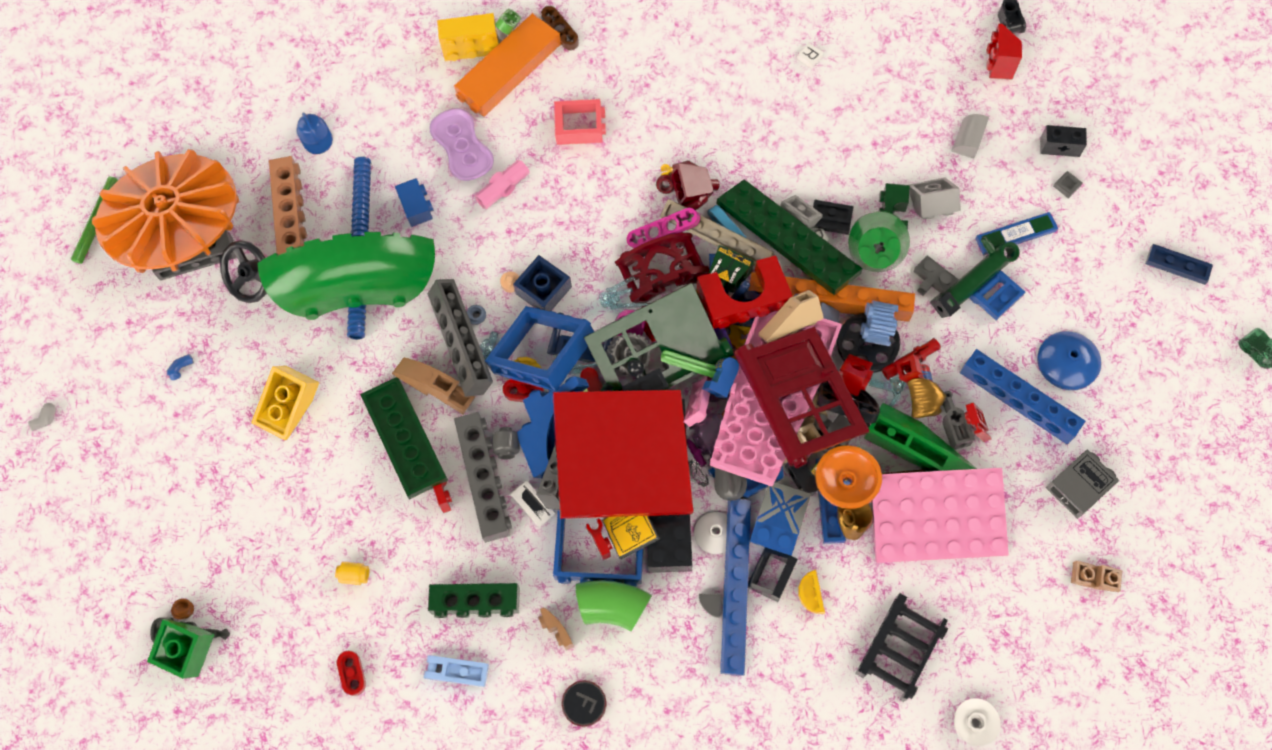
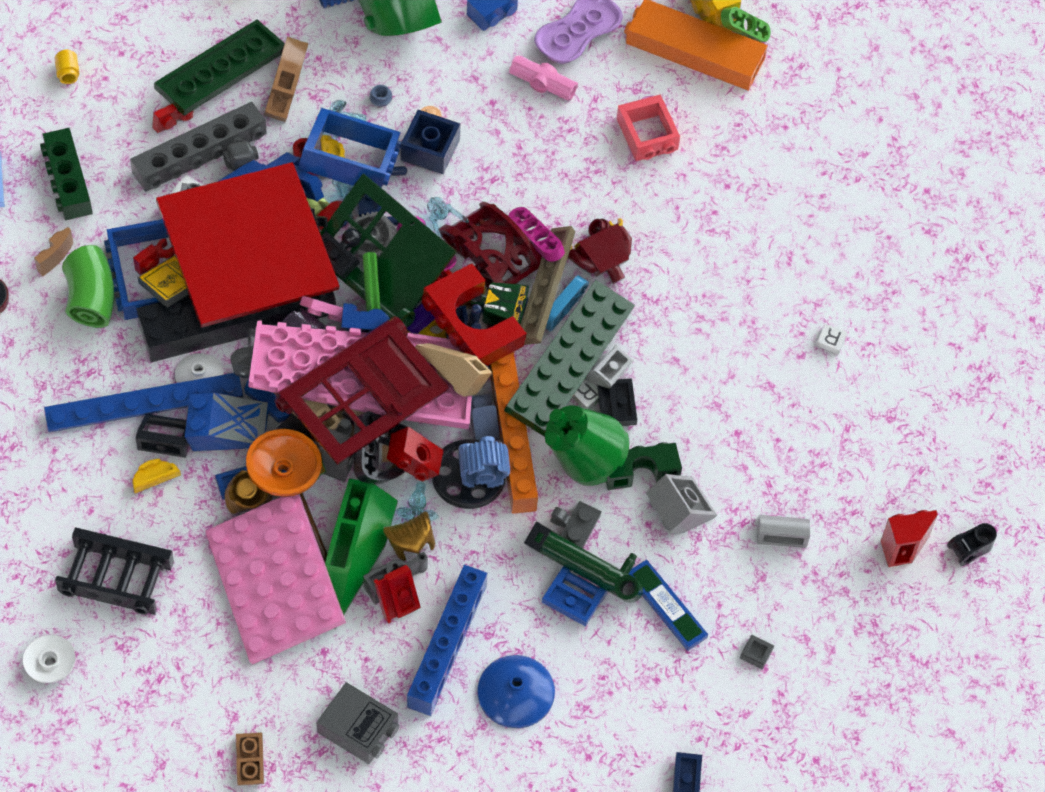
camera: 65 degrees right, 10 degrees down
(459, 337) = (344, 82): dark grey brick -> none
(559, 20) = (767, 73): reddish brown beam -> none
(711, 604) = (117, 384): dark grey tile -> none
(913, 369) = (441, 518): red leg -> none
(921, 352) = (469, 525): red pin -> none
(1063, 141) = (812, 630): black brick -> none

